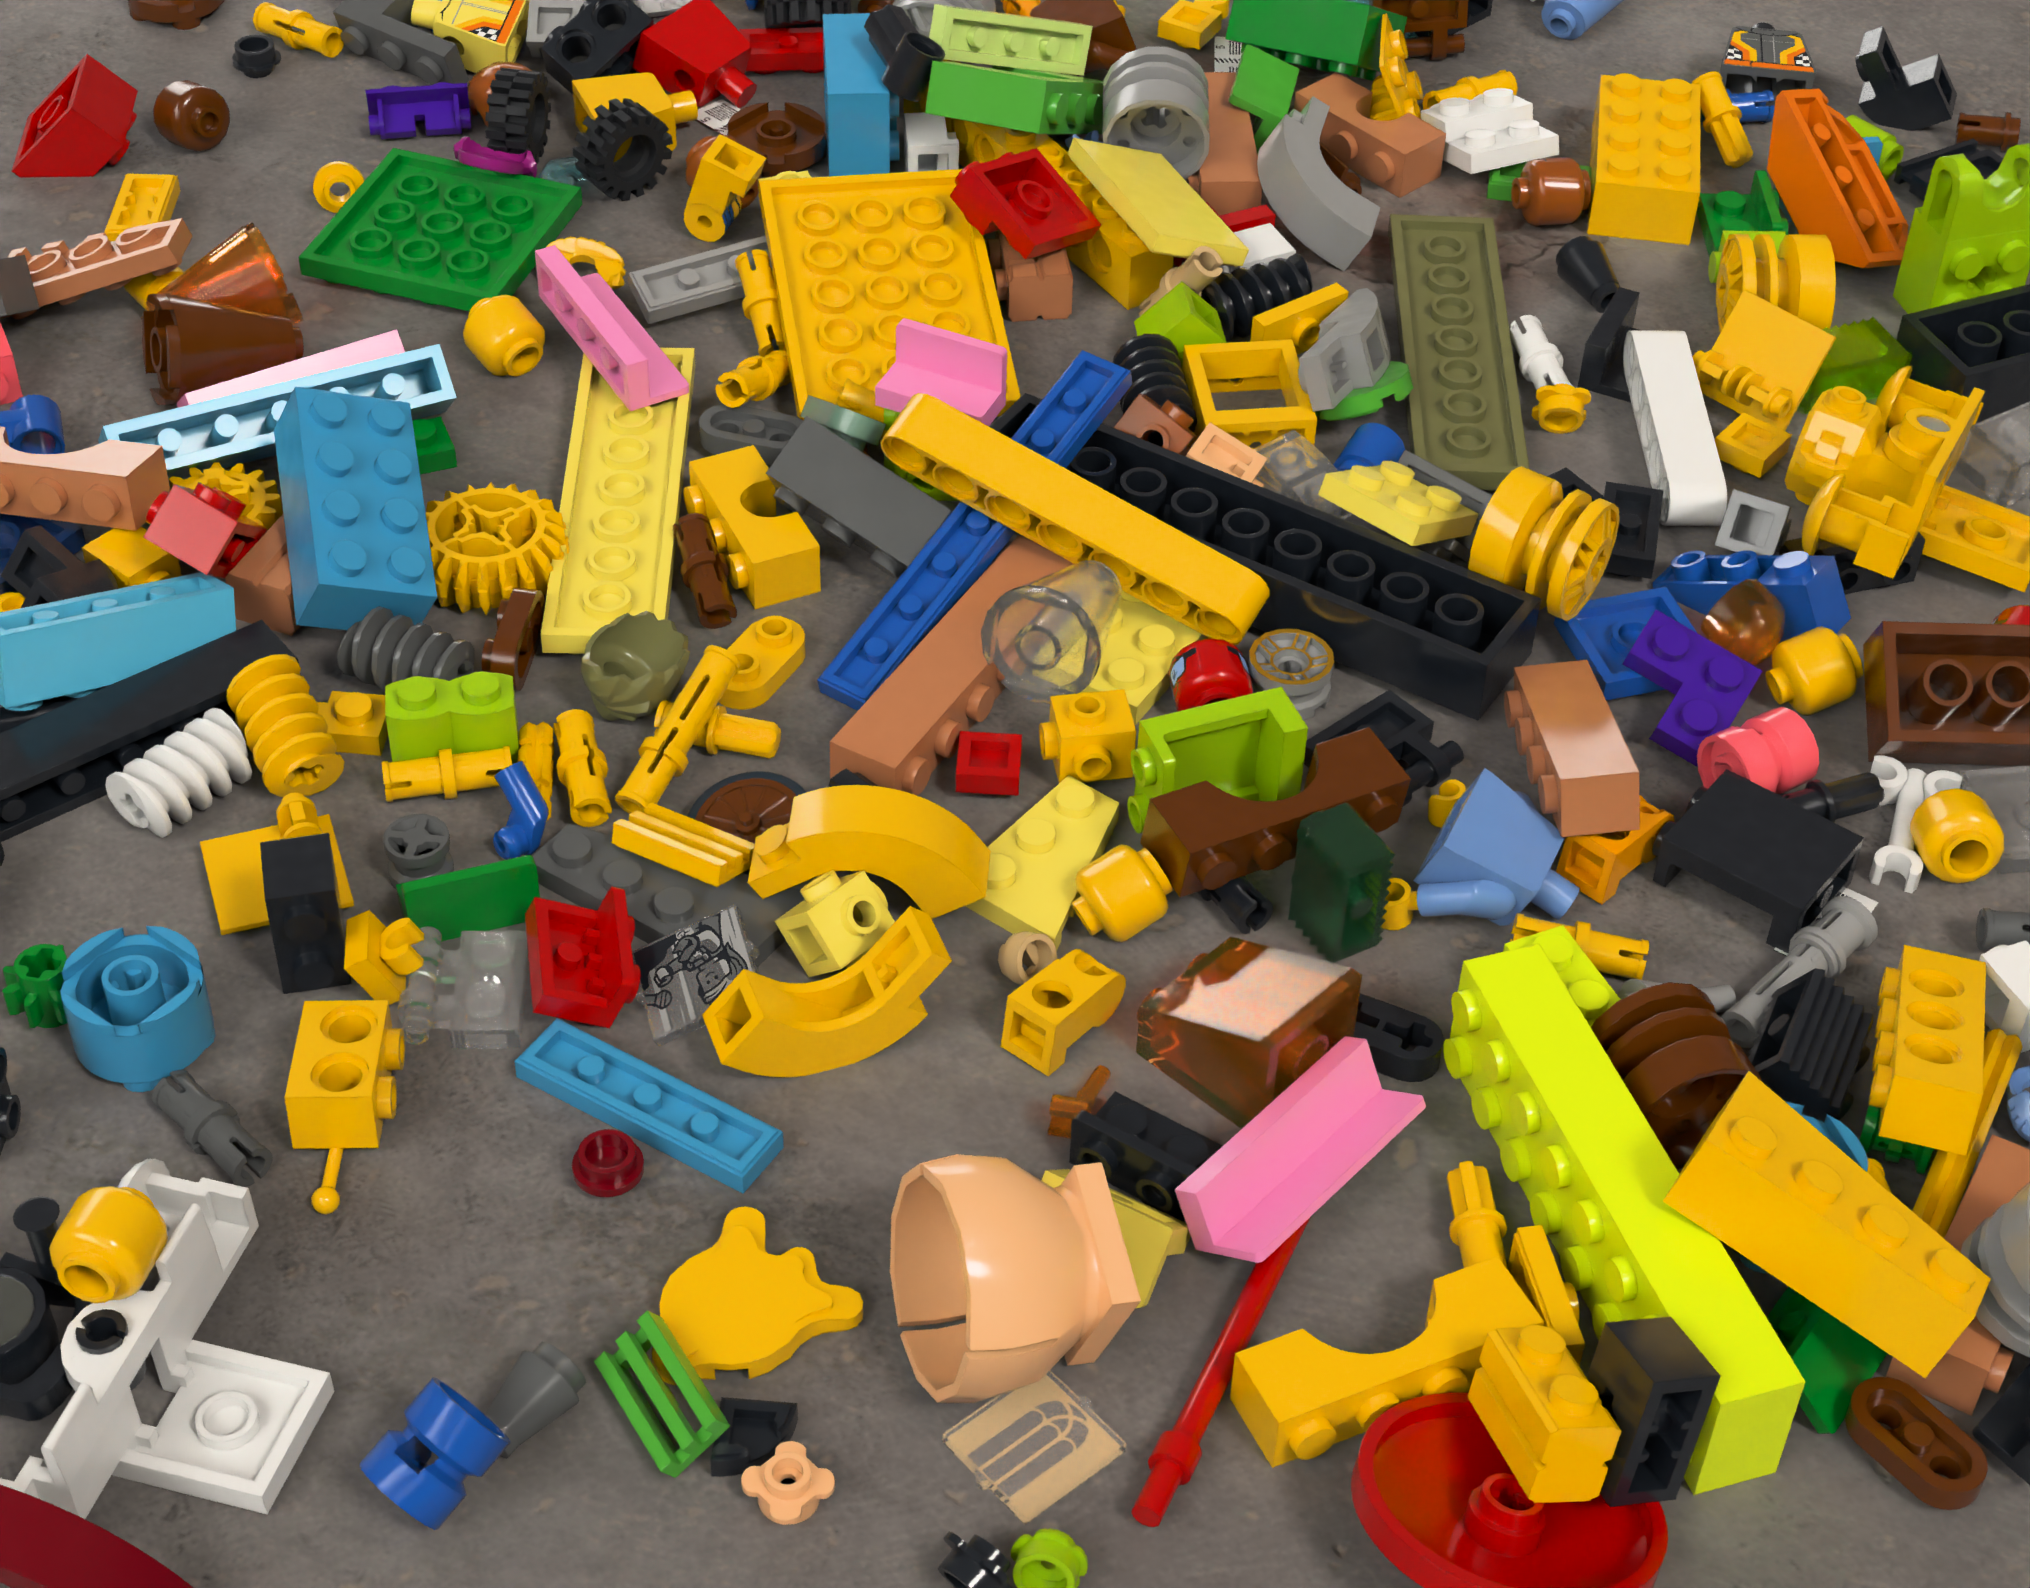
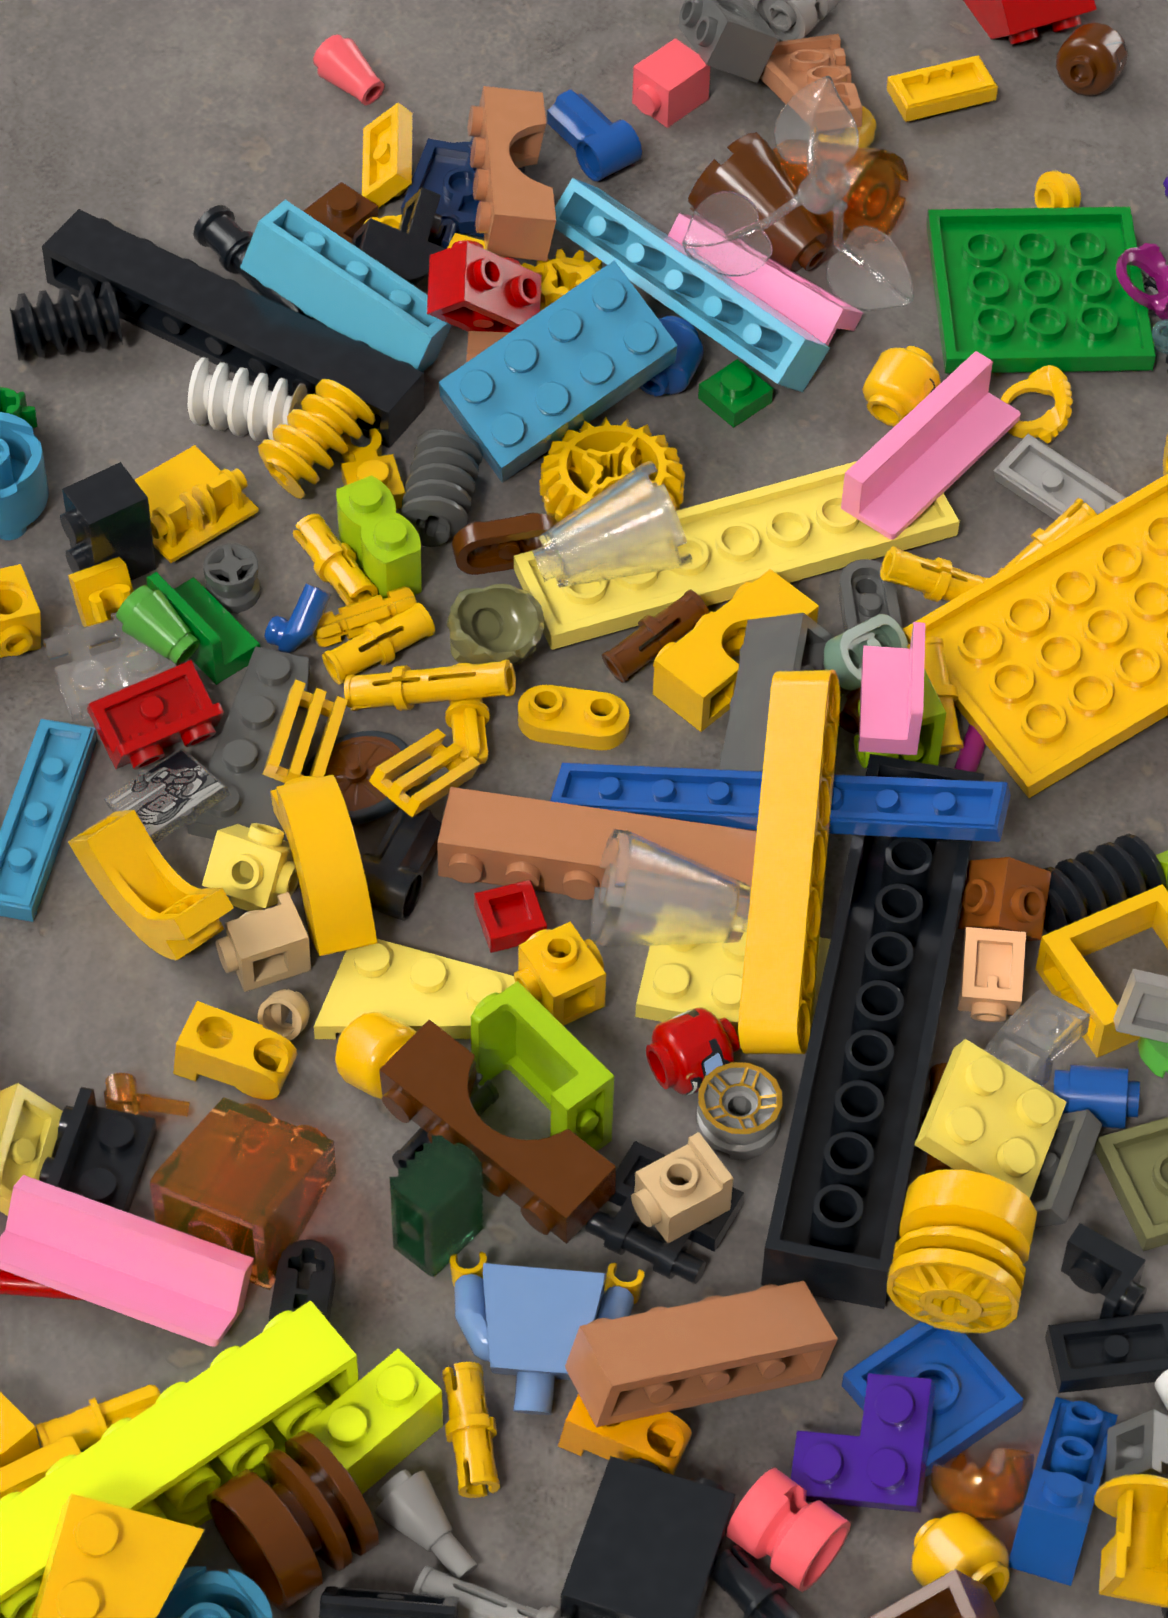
camera: 70 degrees right, 10 degrees up
(288, 255) = (821, 132): none -> clear plant
(469, 908) = (156, 624): none -> bright green cone
(595, 523) = (615, 534): none -> clear cone
(796, 755) = (441, 757): none -> yellow tile
(950, 919) = (265, 945): none -> tan brick
(1391, 704) = (677, 1207): none -> tan brick

